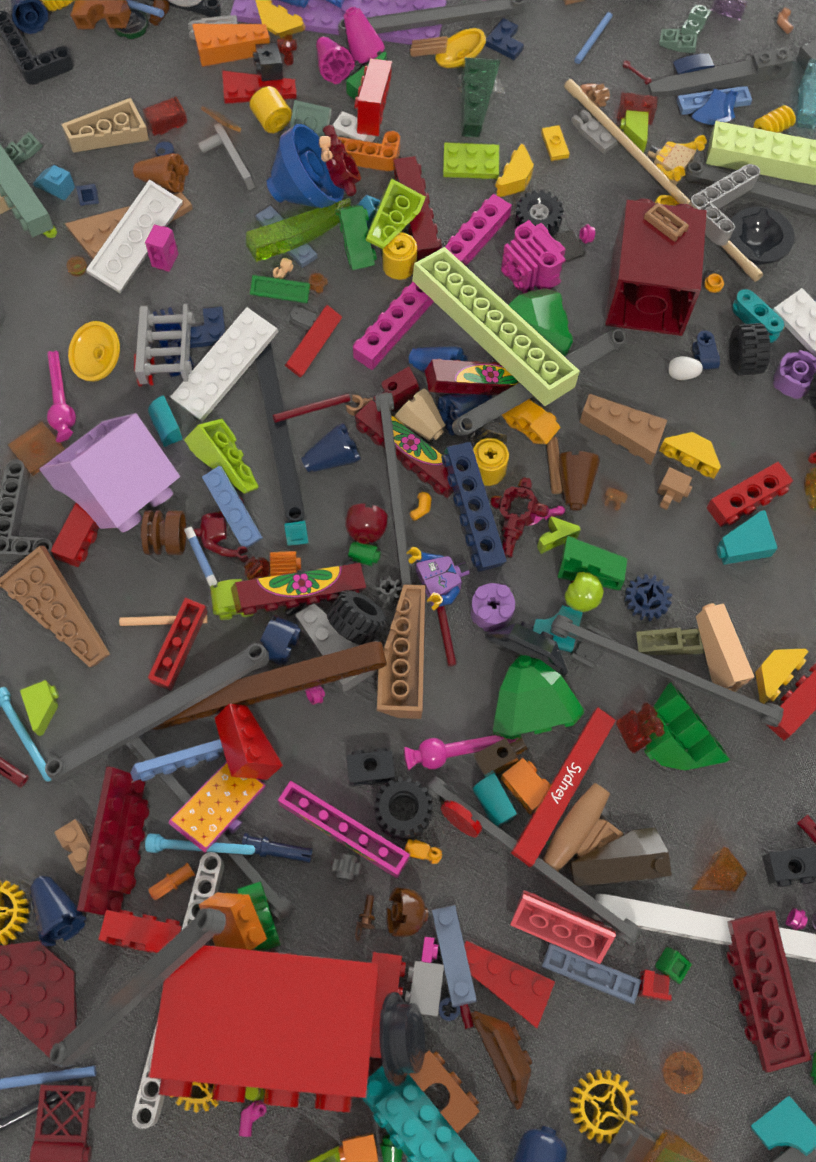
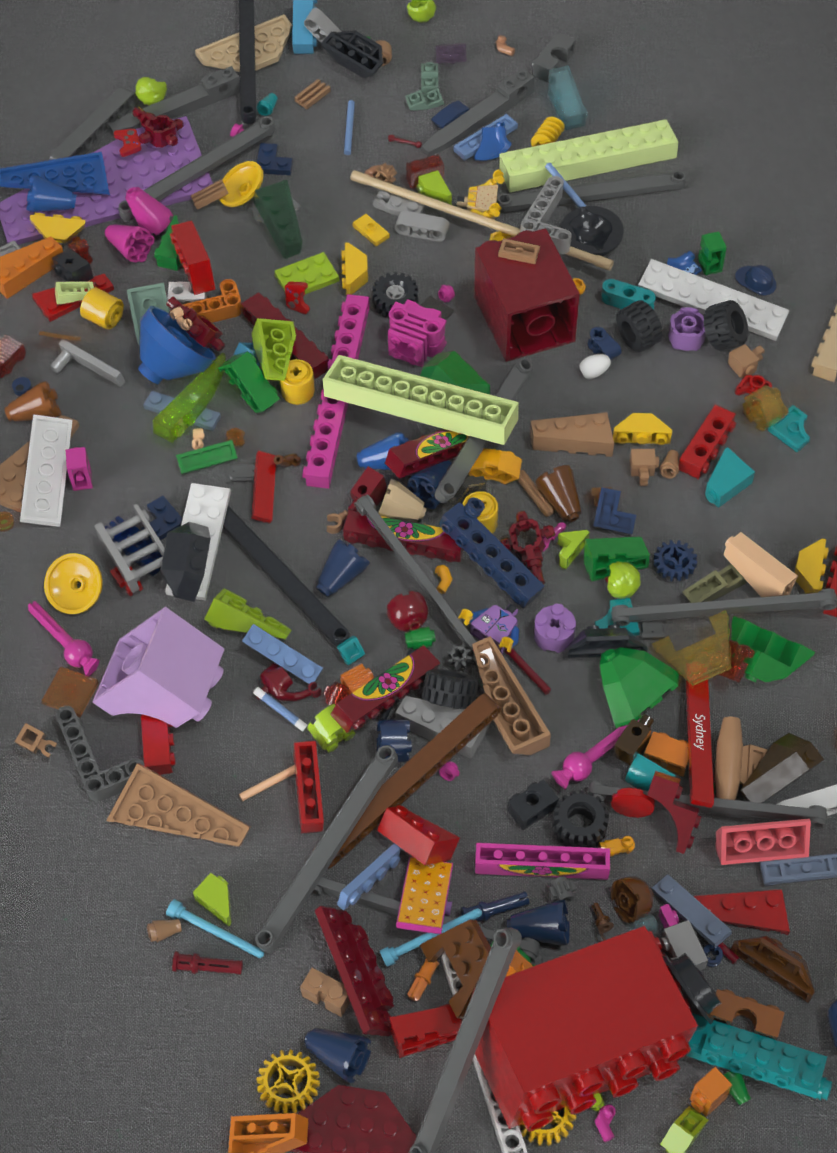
camera: 25 degrees left, 10 degrees down
(160, 532) = (236, 703): reddish brown wheel -> none
(164, 421) = (175, 606): teal brick -> none
(197, 374) = (186, 559): none -> black wedge
(210, 888) = (467, 952): none -> reddish brown wing
(249, 78) = (67, 291): none -> yellowish green slope
(308, 891) = (543, 923): none -> dark blue cone
(311, 408) = (298, 542): dark red bar -> none
(348, 326) = (287, 460): none -> reddish brown arm
(403, 945) = (648, 921): none -> clear light blue plate
(446, 174) = (294, 296): none -> red piece
(474, 453) = (474, 507): none -> dark blue bush
(494, 829) = (665, 789): none -> dark red arch
(603, 159) = (422, 226): none -> light grey beam
(610, 521) = (608, 516): none -> dark blue plate
(615, 710) = (702, 658): none -> clear yellow wing
(699, 501) = (670, 465): none -> medium nougat cone
(760, 181) = (566, 187): none -> medium blue bar

